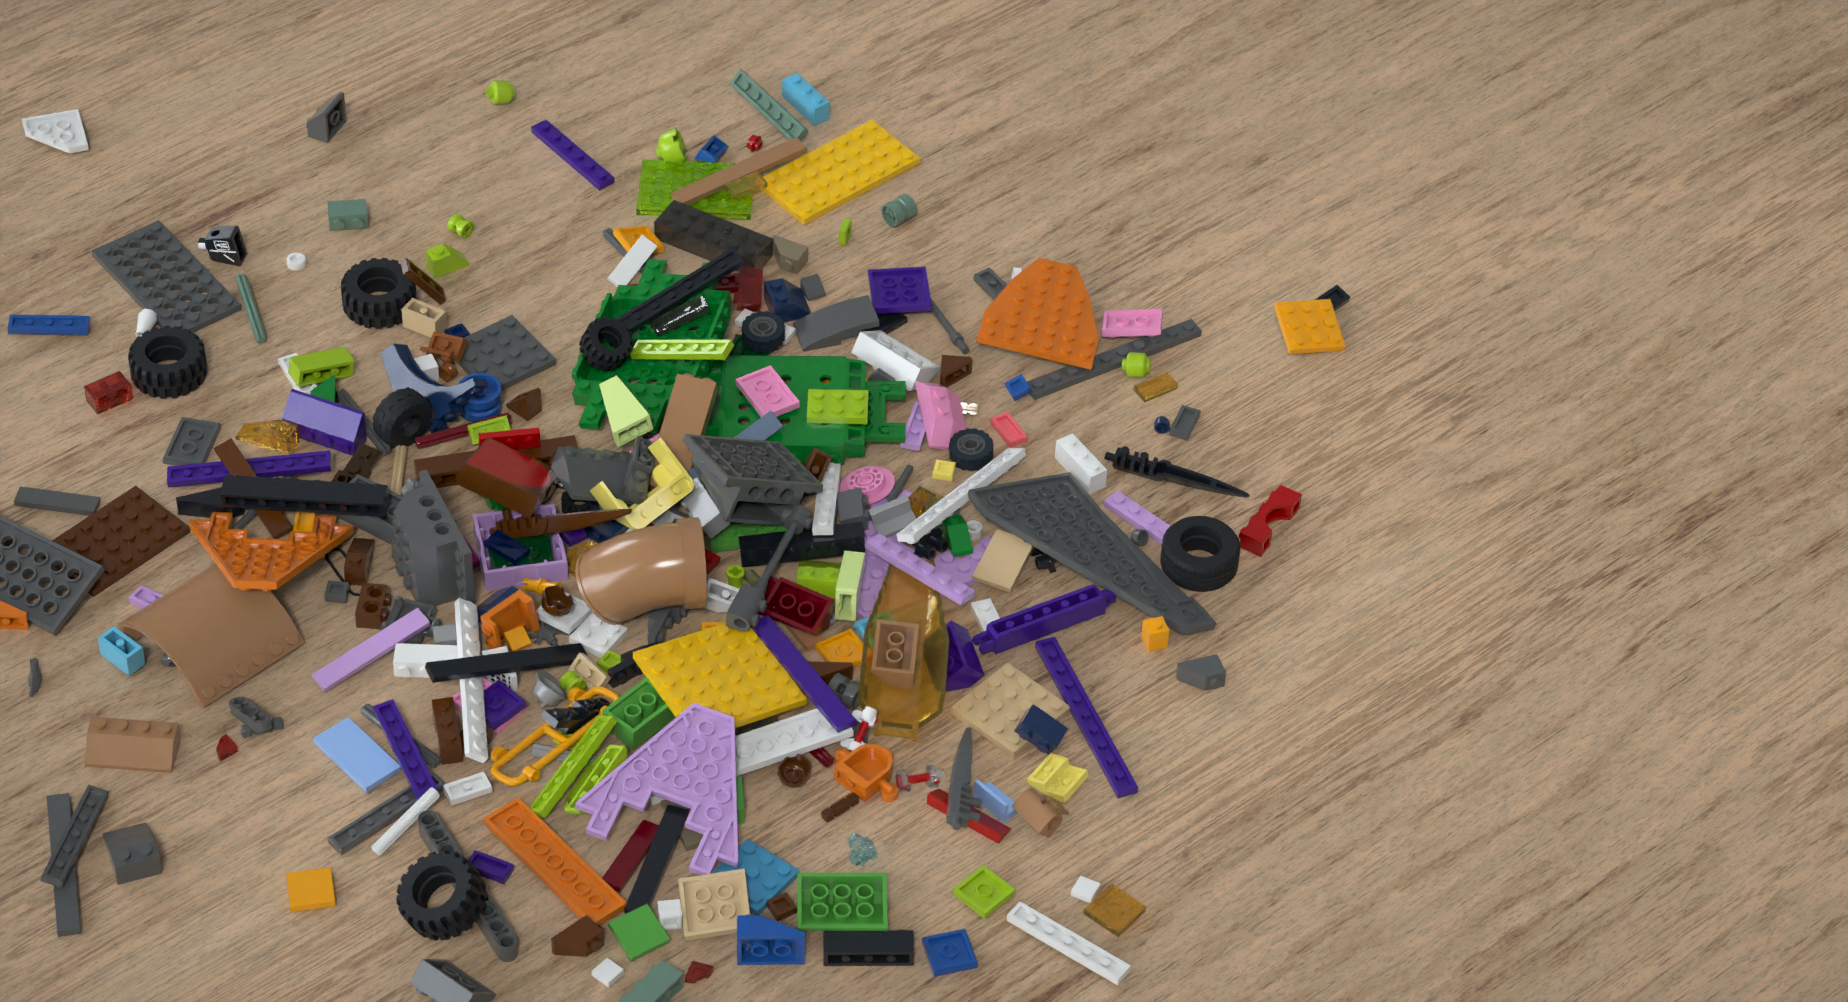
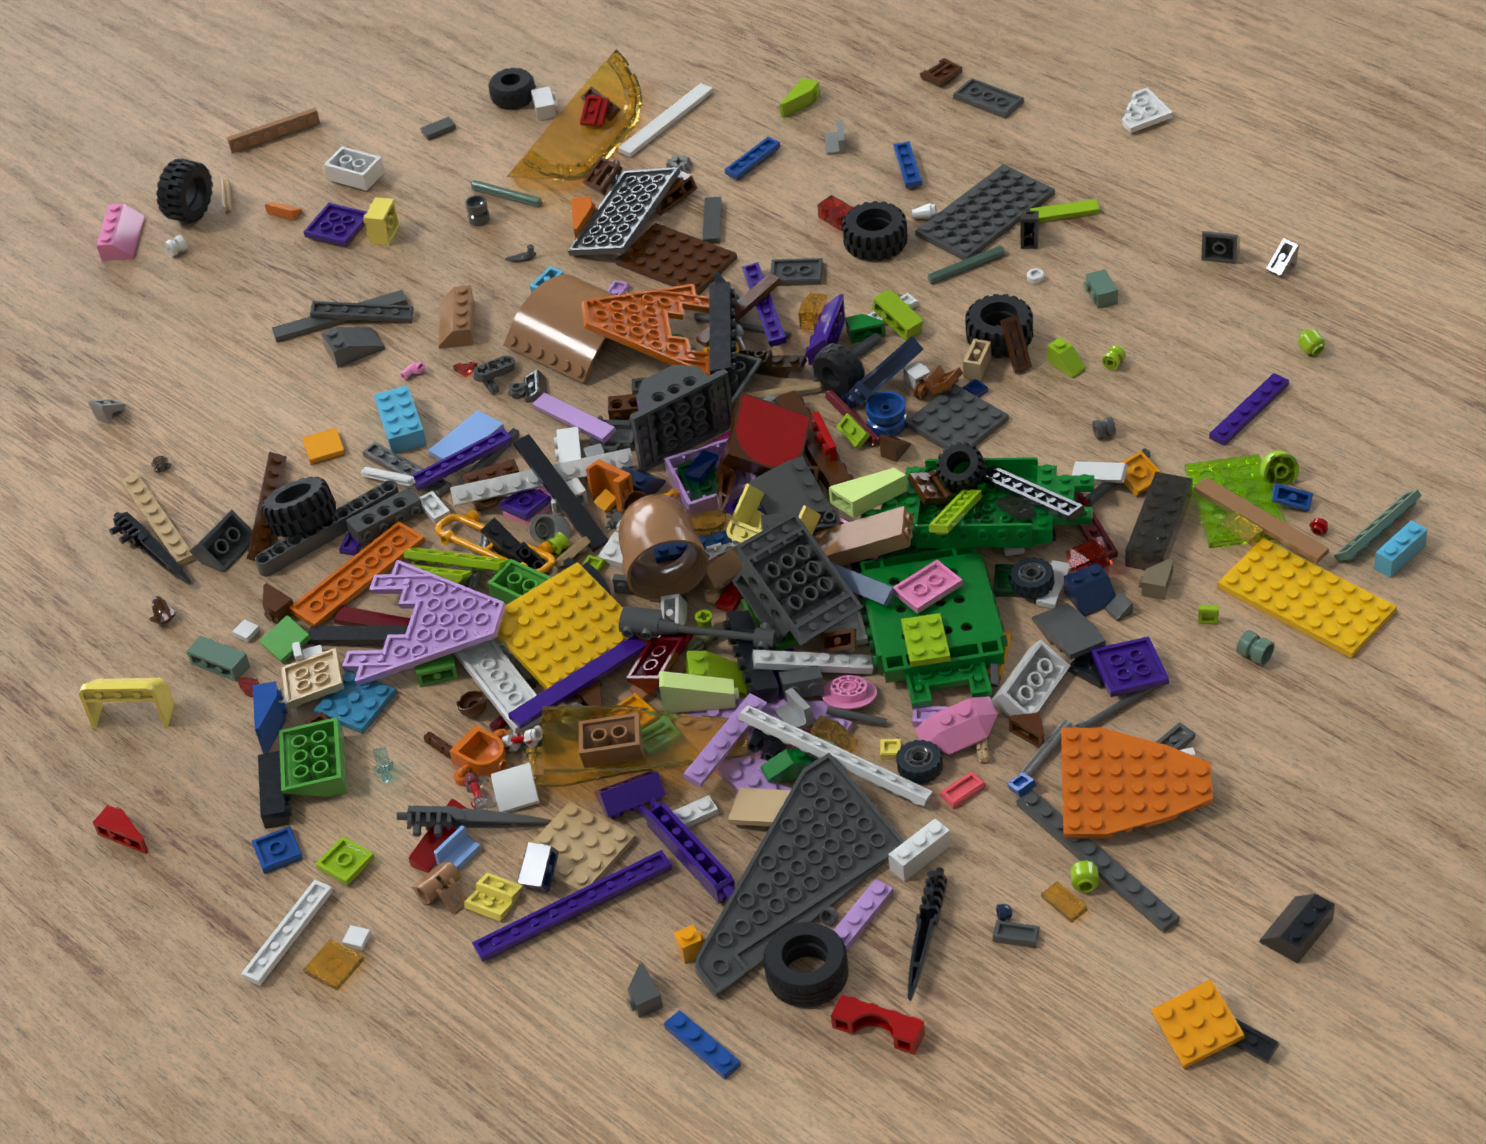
camera: 90 degrees right, 0 degrees up
(197, 220) = (1067, 210): none -> lime tile
(206, 795) = (413, 369): none -> bright pink arm
(290, 687) = (535, 386): none -> dark grey slope
(290, 701) = (516, 390): none -> dark grey plate
(303, 807) = (400, 419): none -> medium azure brick
(367, 80) = (1283, 257): none -> slope
(401, 944) = (271, 481): none -> reddish brown plate
(471, 830) = (384, 515): none -> dark grey brick
(562, 251) = (1104, 427): none -> dark grey wheel
(627, 372) = (926, 490): none -> reddish brown plate
(923, 745) = (515, 788): none -> white slope
(978, 368) = (1045, 750): none -> light grey axle
(1132, 323) = (1147, 862): bright pink plate -> none
(1217, 251) = (1299, 926): none -> black slope
(1265, 643) = (702, 1044): none -> blue plate

